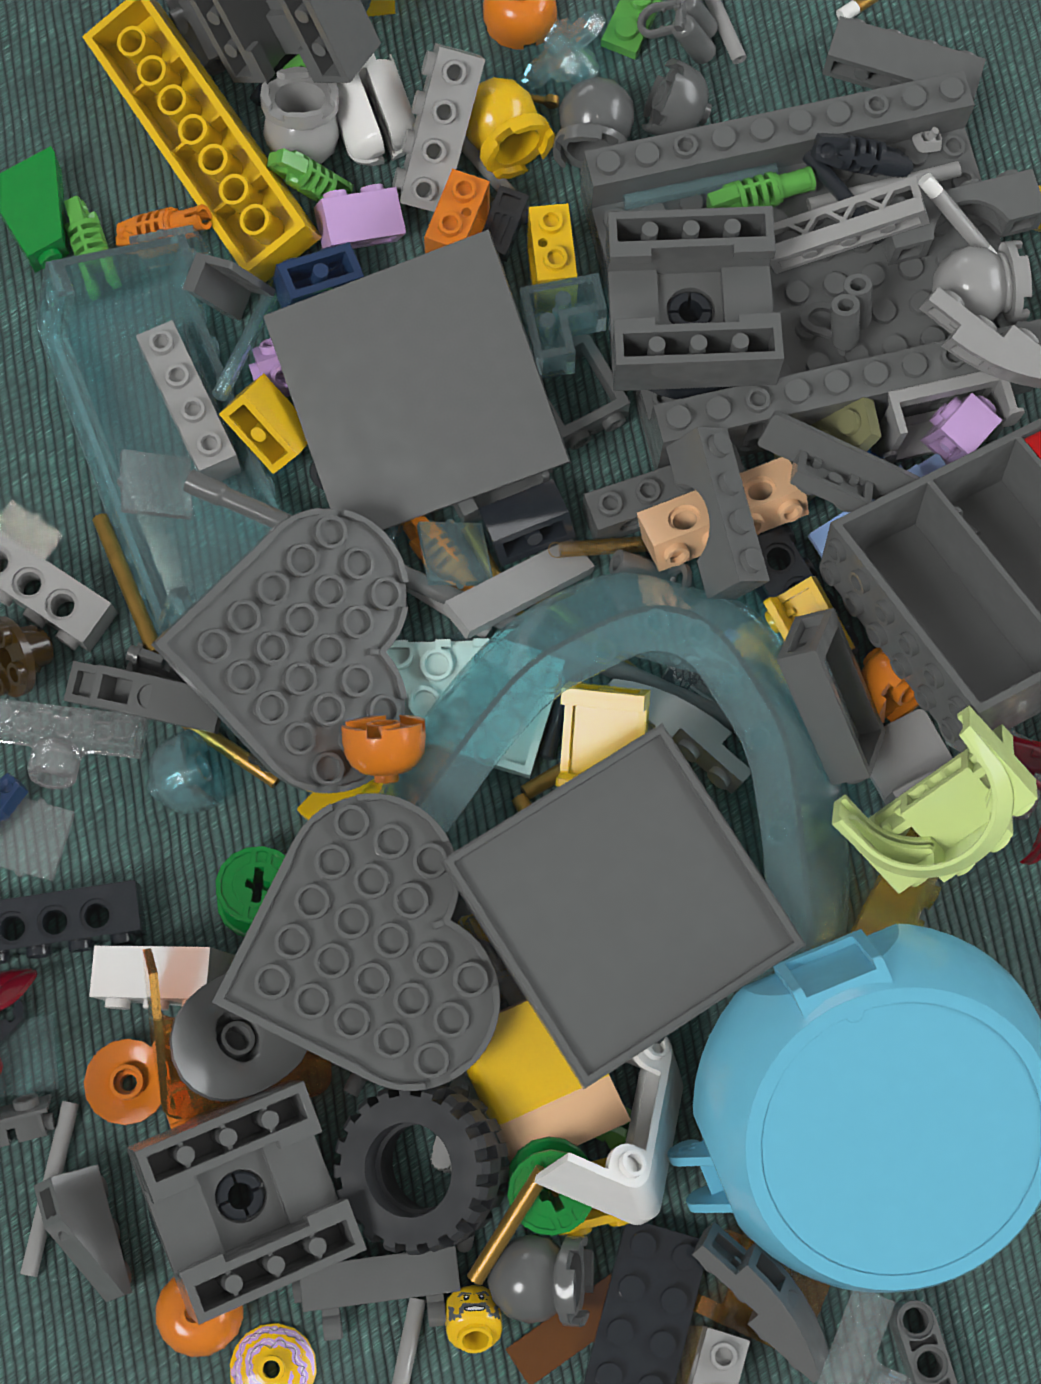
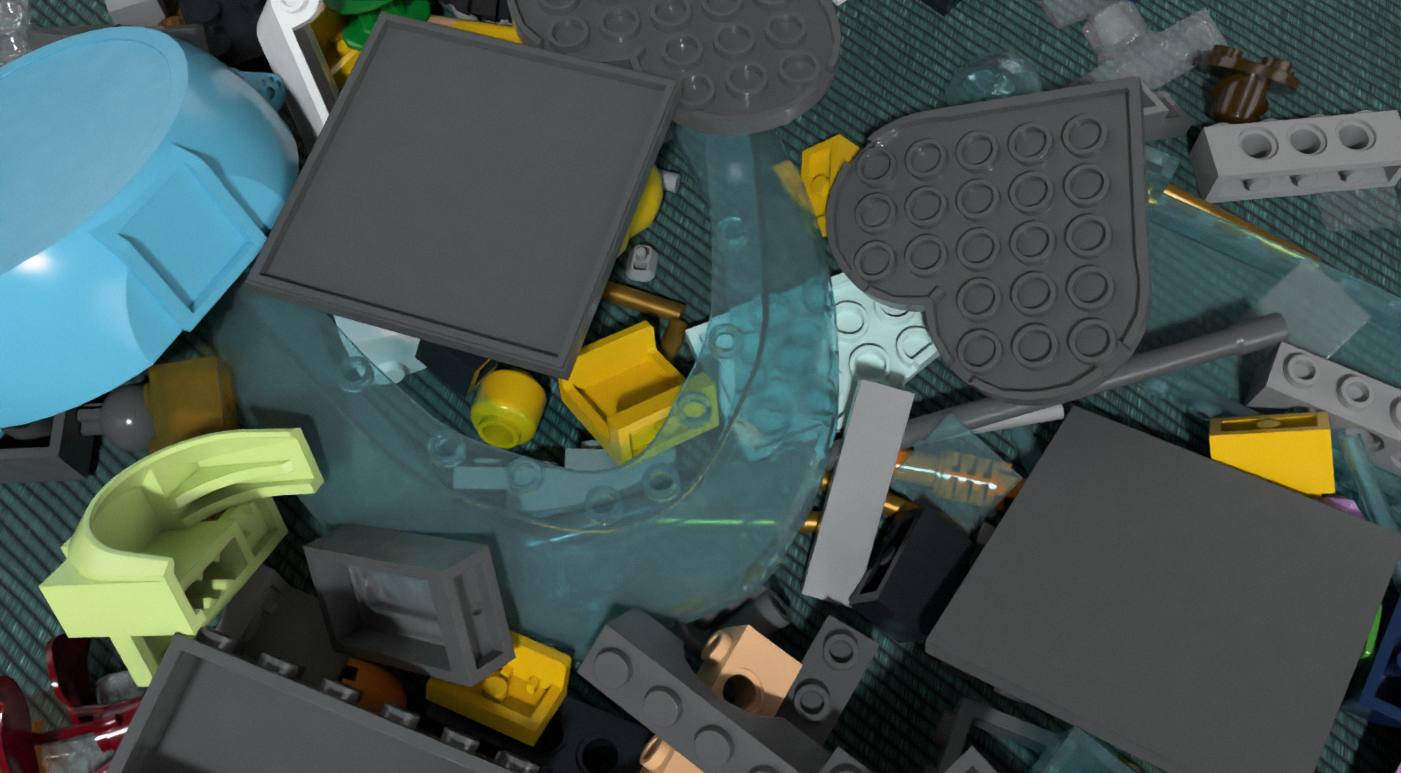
camera: 145 degrees right, 10 degrees down
(237, 885) = (863, 57): green piece -> none
(384, 746) = (845, 207): orange cylinder -> none
(592, 552) = (818, 609): pearl gold piece -> none

